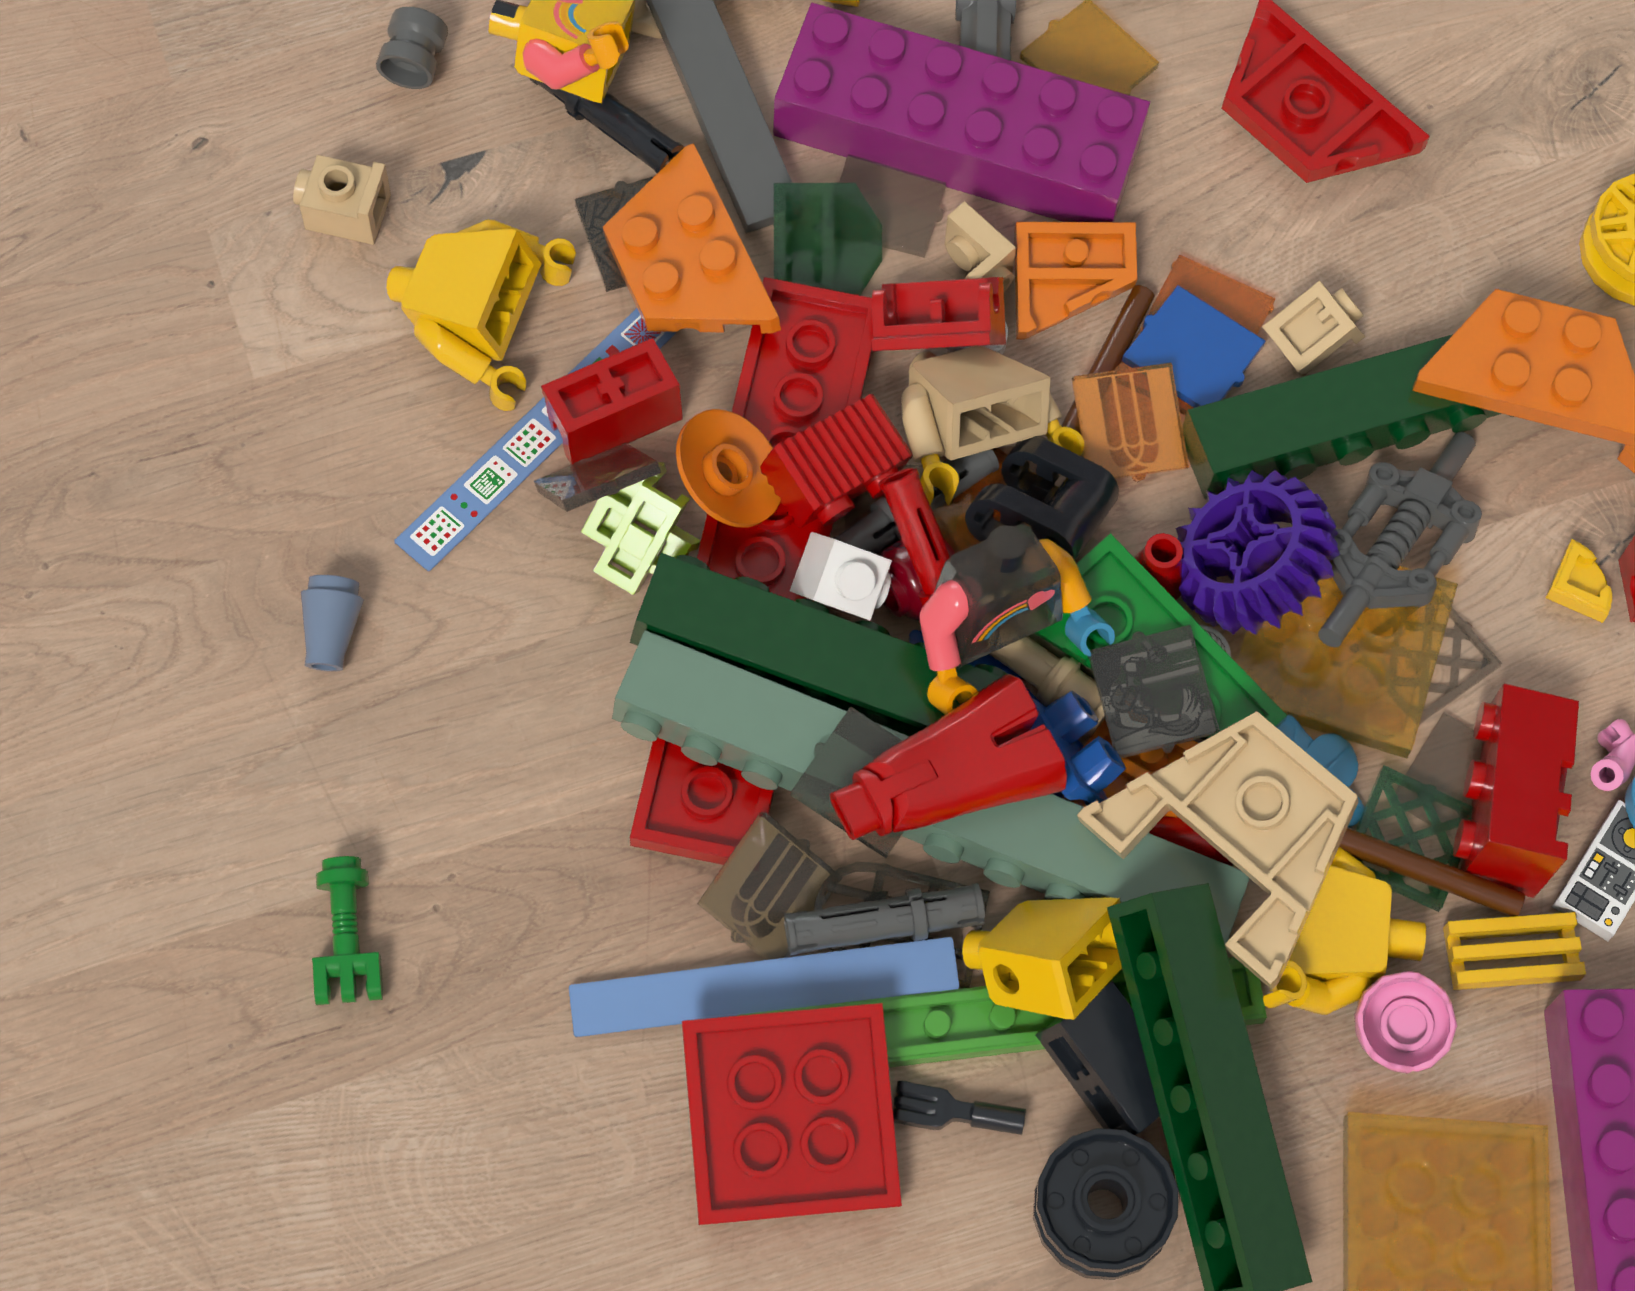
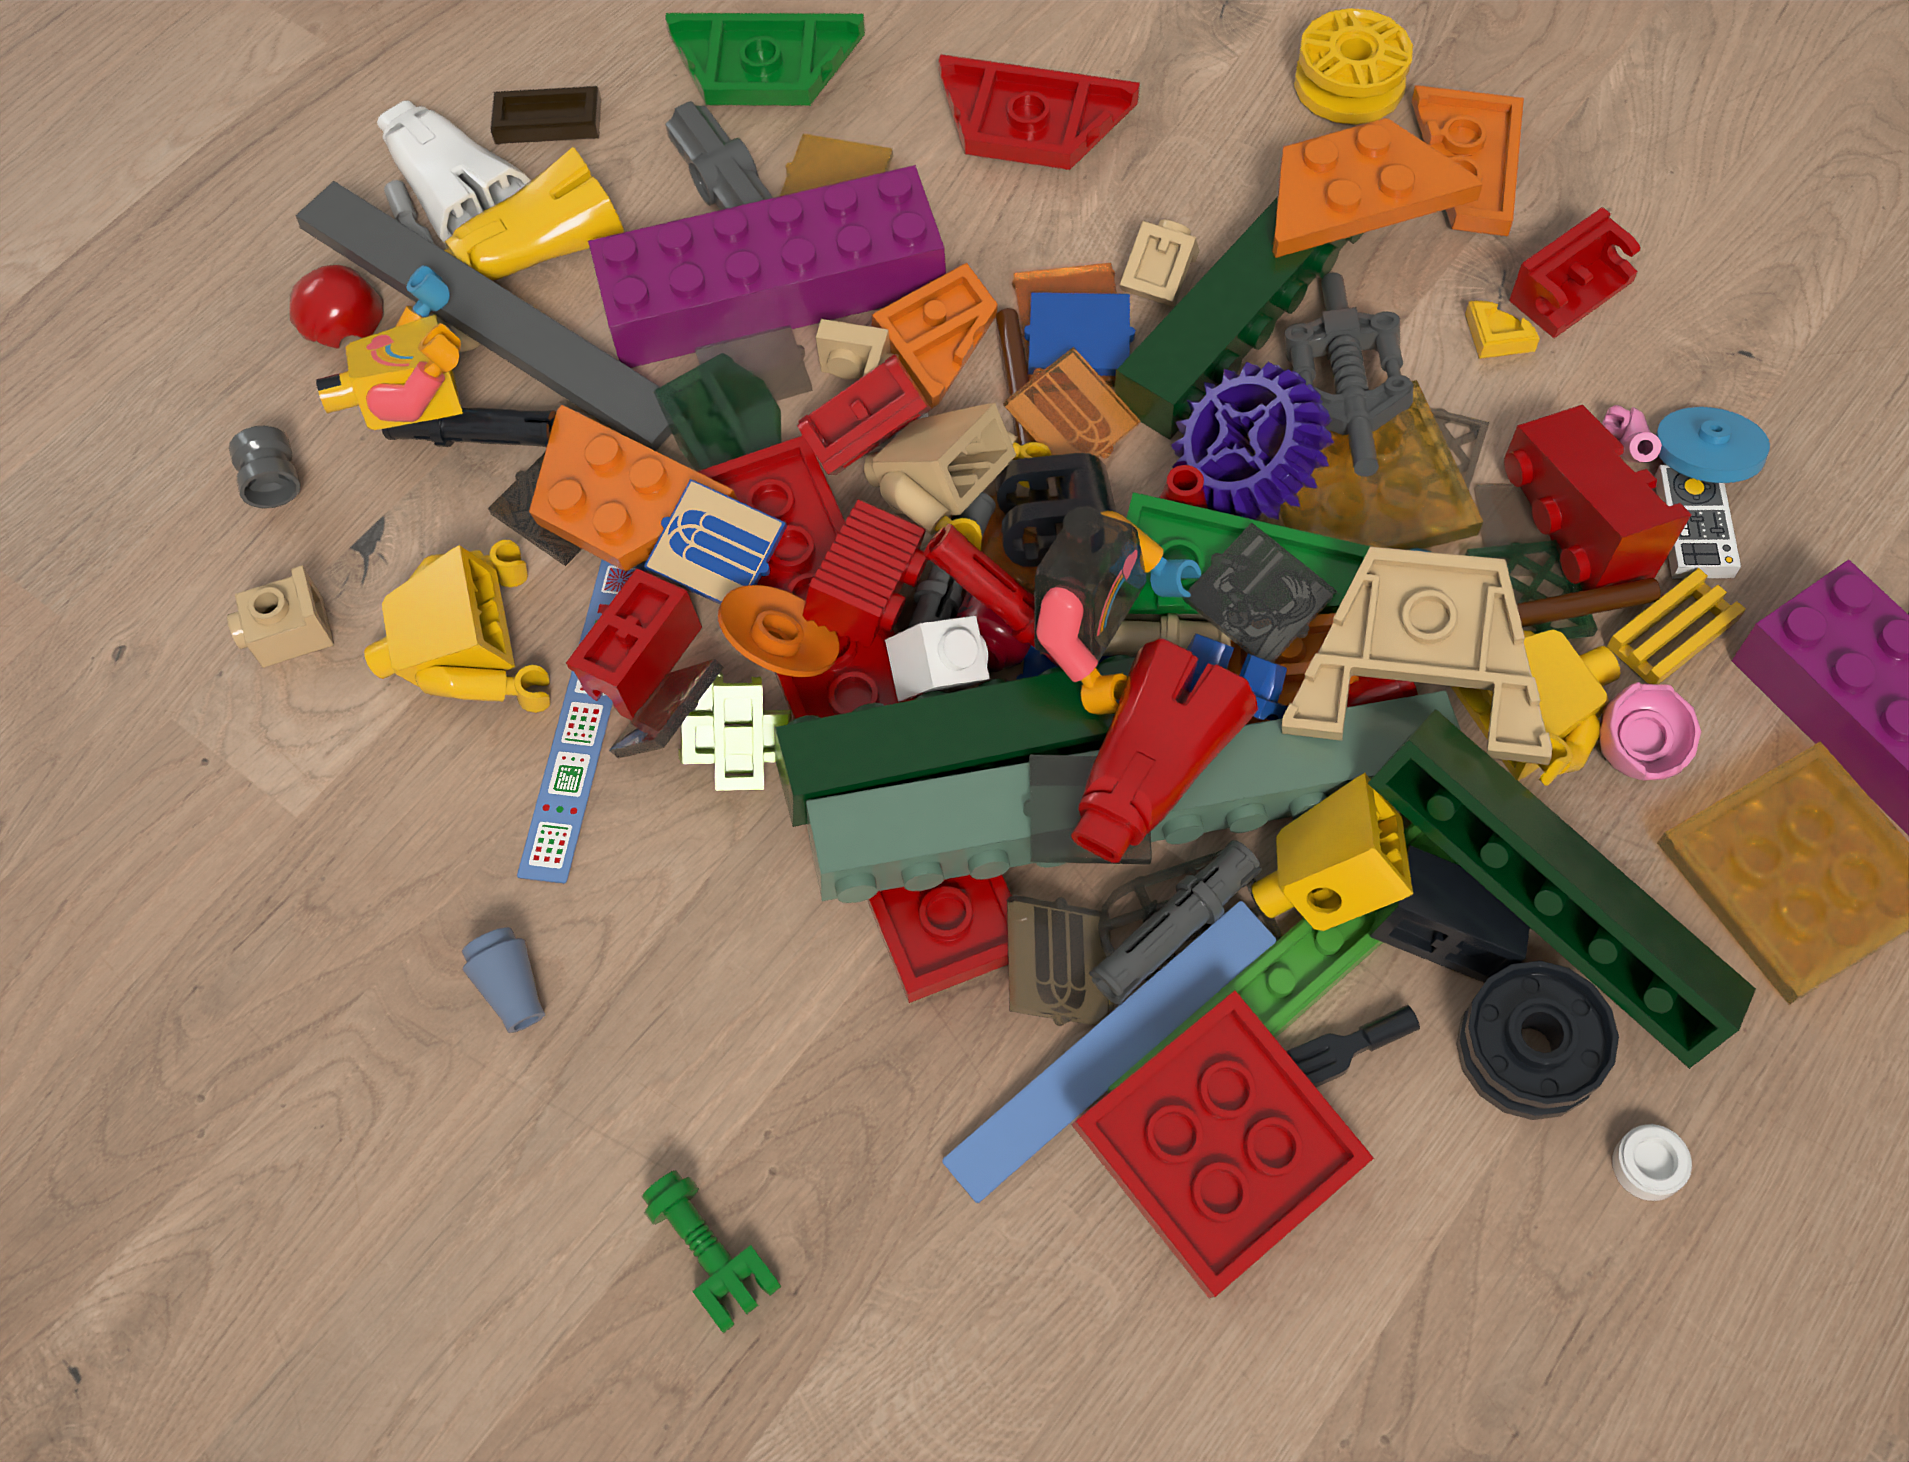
camera: 25 degrees left, 5 degrees down
(732, 356) = (714, 543): none -> piece

